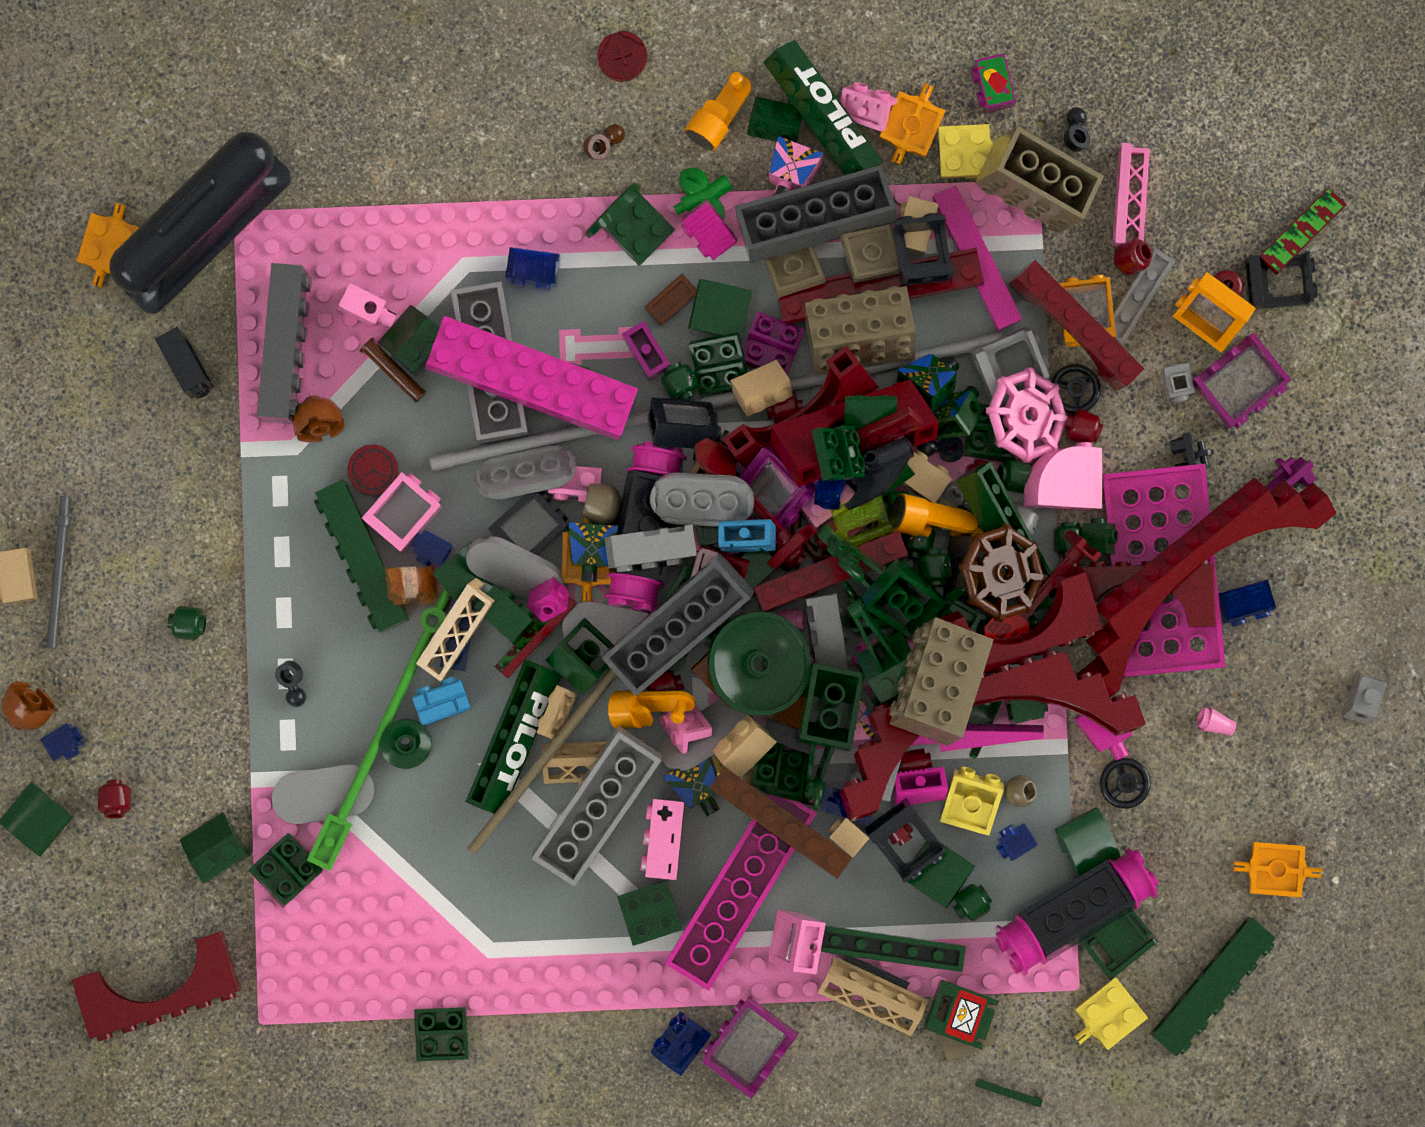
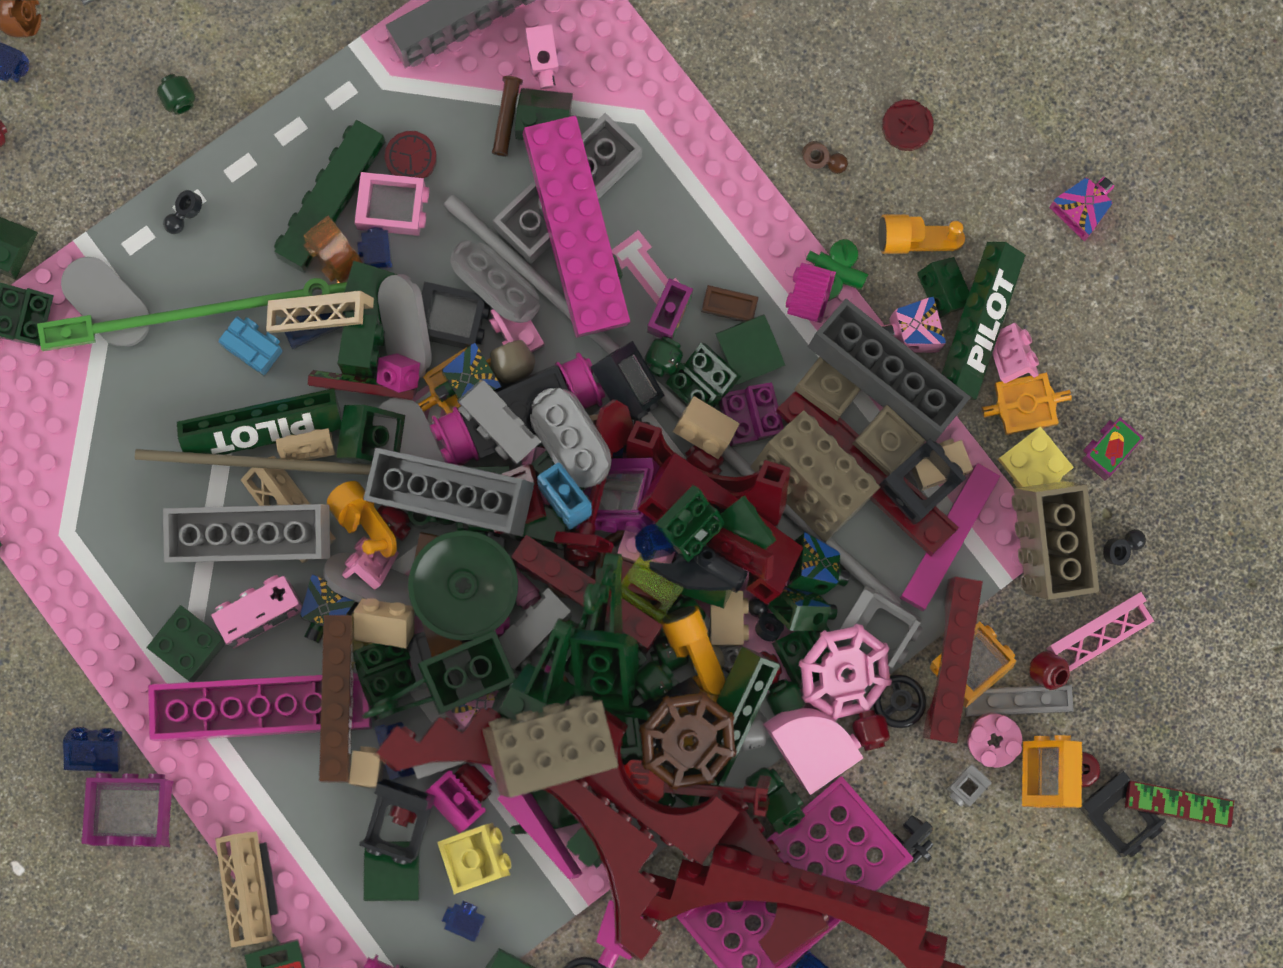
camera: 55 degrees right, 5 degrees down
(316, 419) = (419, 79): dark orange cylinder -> none
(405, 755) = (183, 342): dark green dish -> none
(532, 268) = (674, 170): clear blue brick -> none
(633, 225) = (770, 227): dark green piece -> none
(796, 942) = (244, 783): bright pink window -> none
(893, 948) = (293, 870): dark green brick -> none
(972, 902) = (384, 920): dark green head -> none
(1020, 791) = (512, 894): dark tan piece -> none
(1143, 343) = (1008, 747): none -> bright pink plate
(1241, 381) = (1009, 842): window -> none
(1292, 471) = (962, 941): magenta hips -> none

